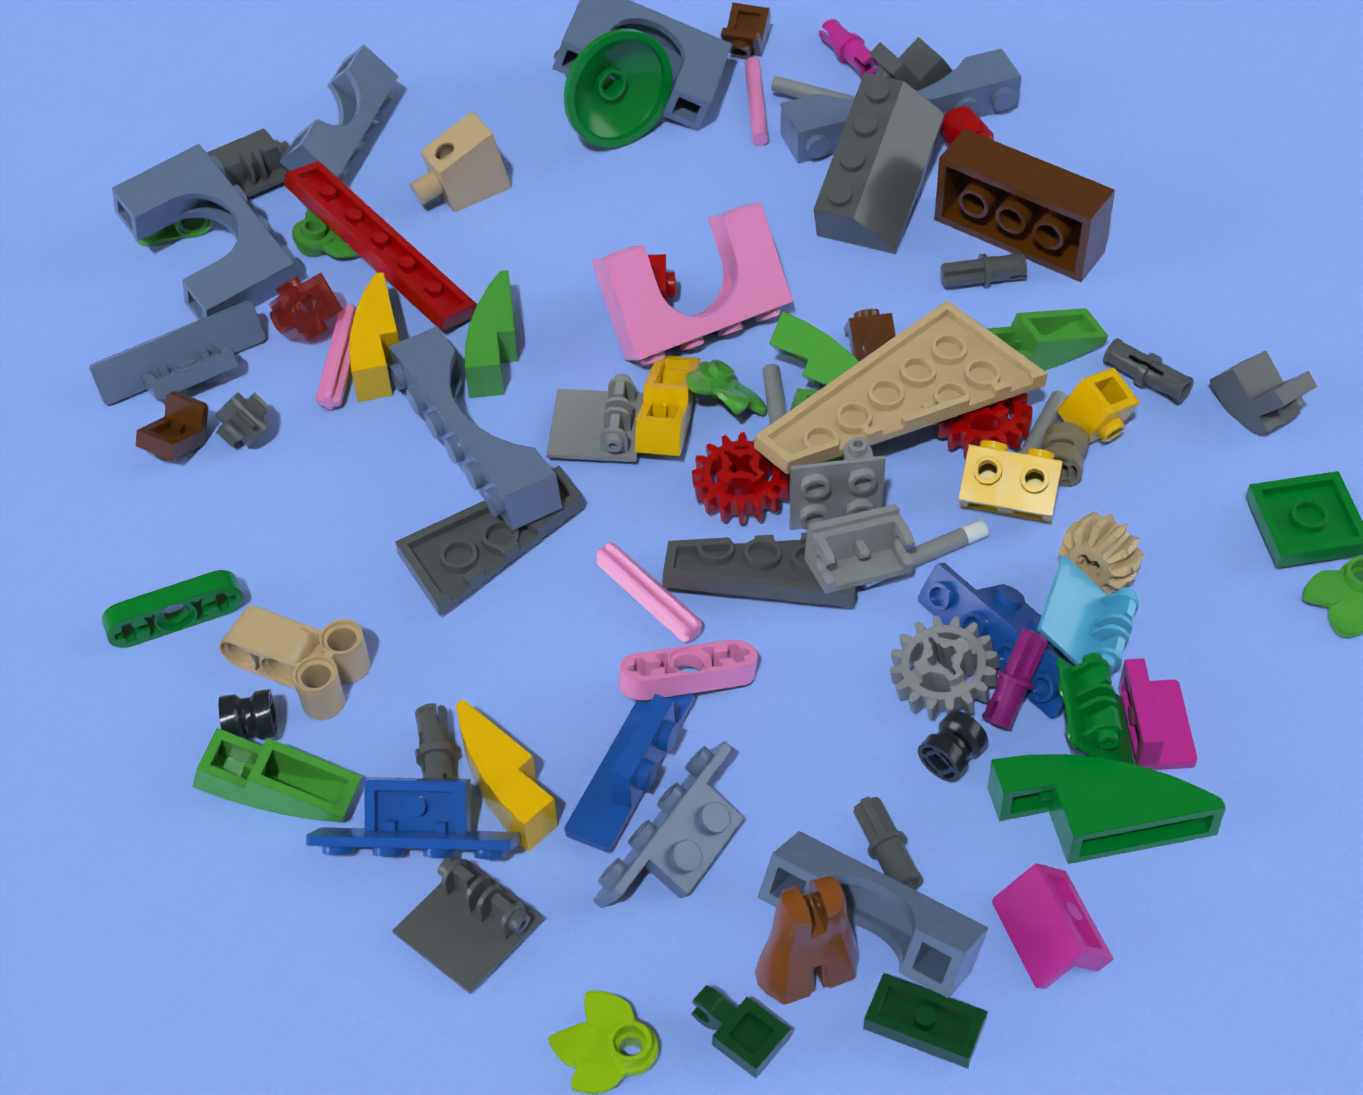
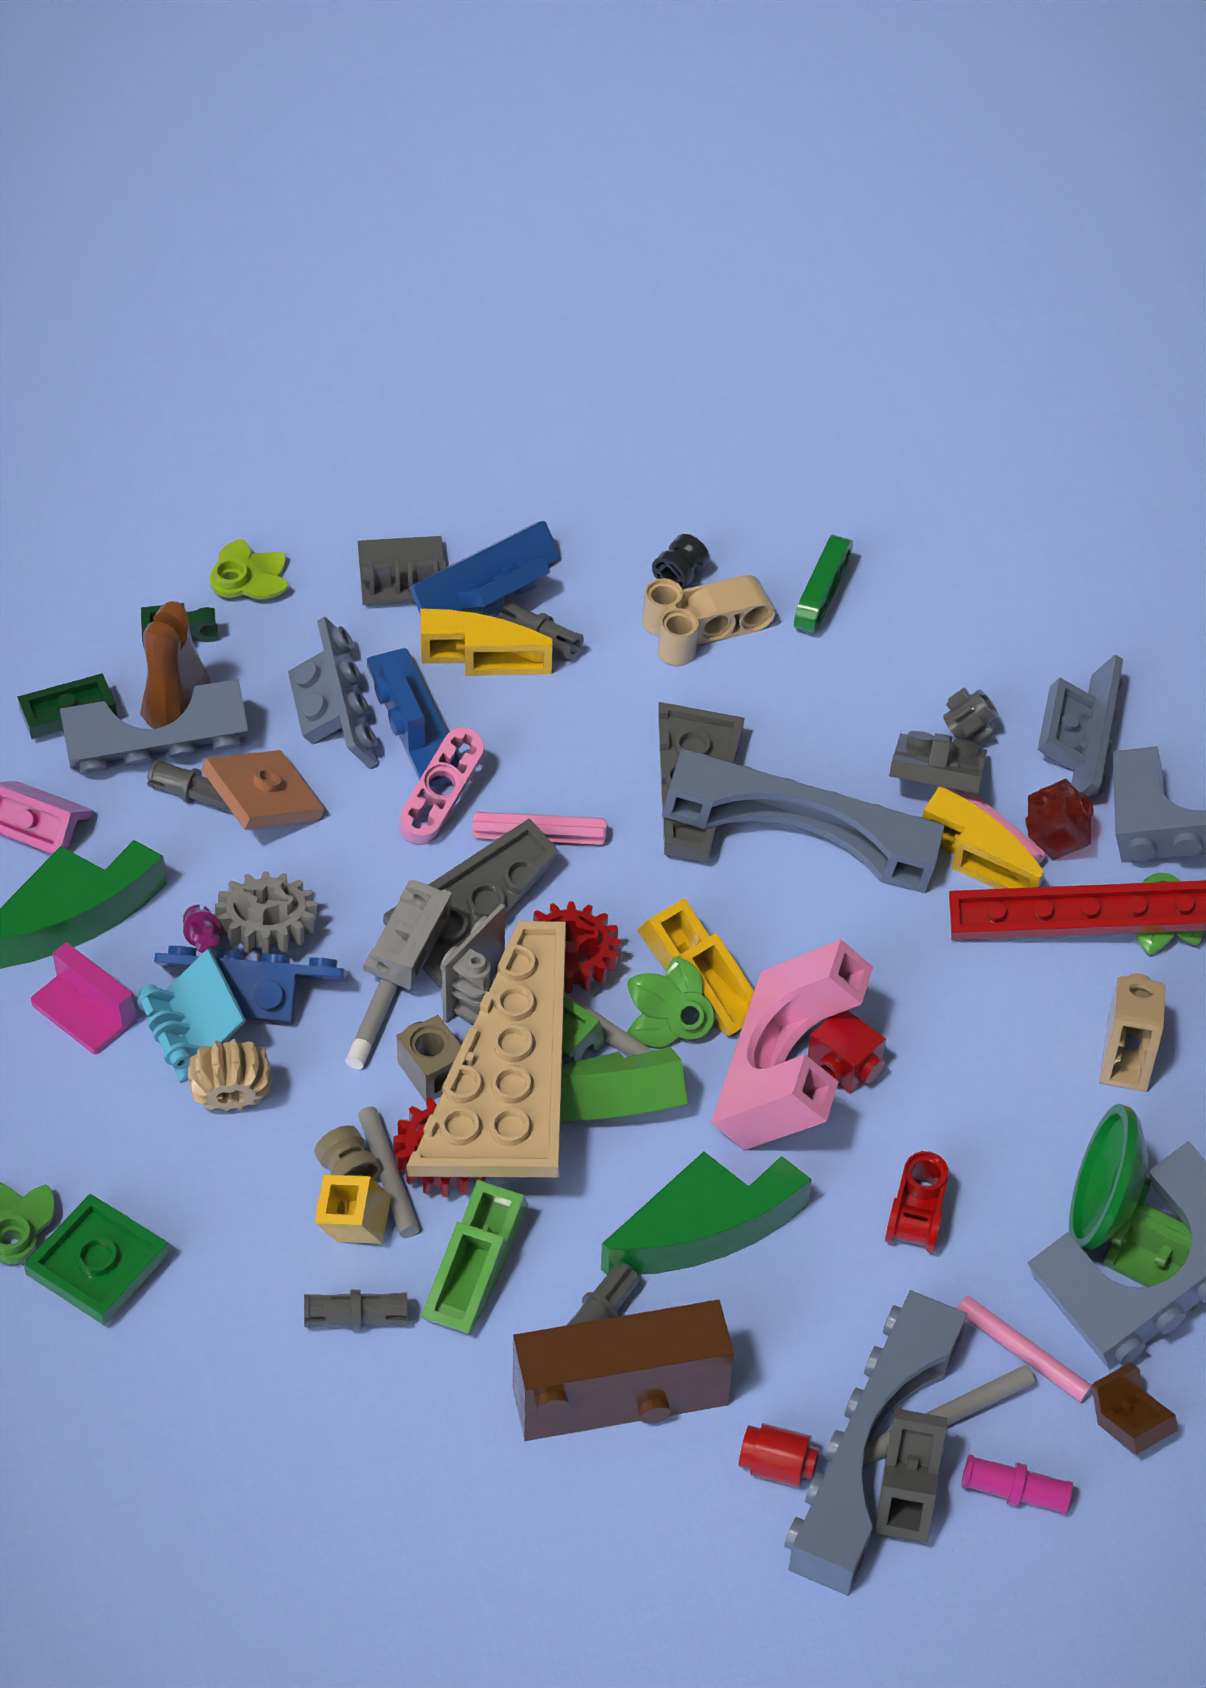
camera: 130 degrees right, 0 degrees up
(178, 431) = (1004, 676): reddish brown bracket -> none
(275, 778) = (615, 548): bright green slope -> none
(319, 401) = (938, 761): none -> dark grey hinge
(490, 339) = (900, 915): bright green slope -> none
(596, 422) = (740, 914): light grey hinge -> none
(718, 185) = (918, 1208): none -> red piece
(837, 778) = (262, 789): none -> nougat plate
(864, 264) = (706, 1217): none -> green slope
(869, 331) = (615, 1150): reddish brown bracket -> none
(878, 165) = (798, 1309): dark grey slope -> none
(929, 475) = (423, 1039): none -> dark tan brick
(950, 749) = (207, 868): black wheel -> none
(1010, 481) = (357, 1085): yellow brick -> none
(1094, 709) = (120, 937): green hinge -> none
(1258, 395) = (226, 1348): dark grey brick -> none

